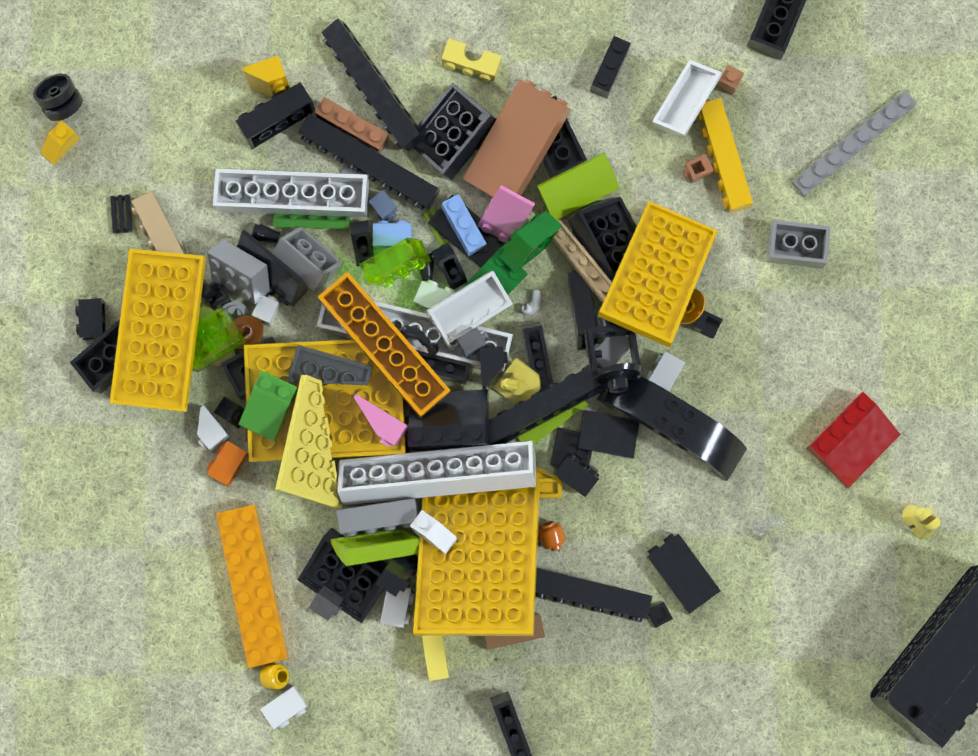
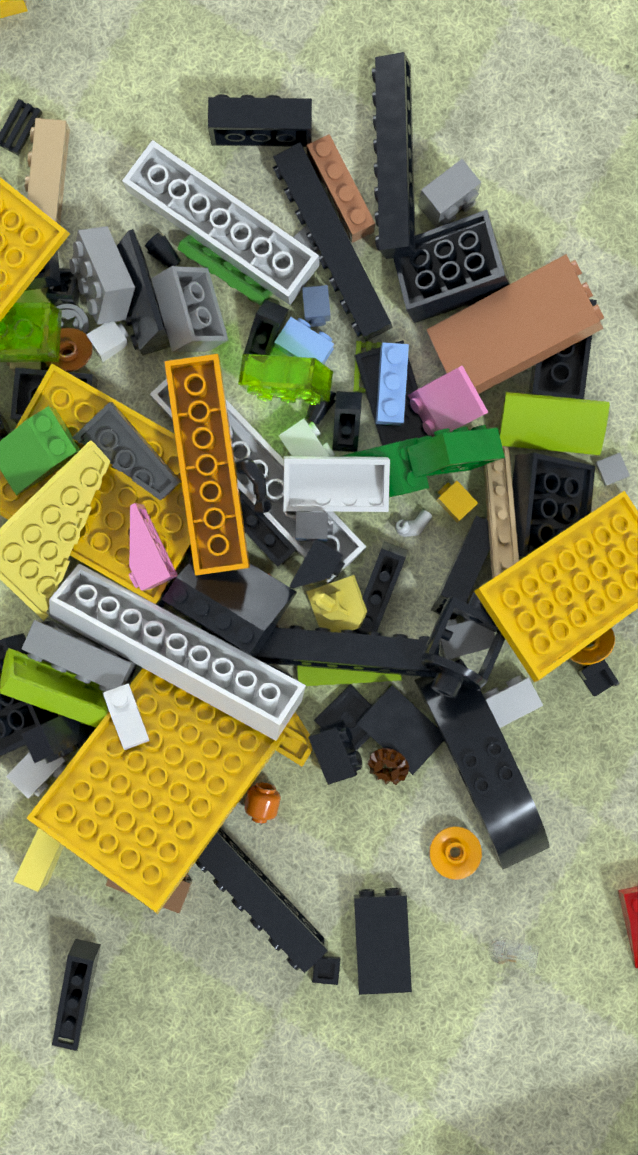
camera: 35 degrees right, 5 degrees up
(267, 77) = (278, 68): yellow slope -> none
(422, 87) = (449, 194): none -> light grey brick
(485, 67) = (536, 216): light yellow arch -> none
(549, 272) = (456, 500): none -> yellow brick
(615, 455) = (391, 759): none -> reddish brown gear
(632, 192) = (612, 469): none -> light grey tile
(701, 486) = (461, 865): none -> light orange dish

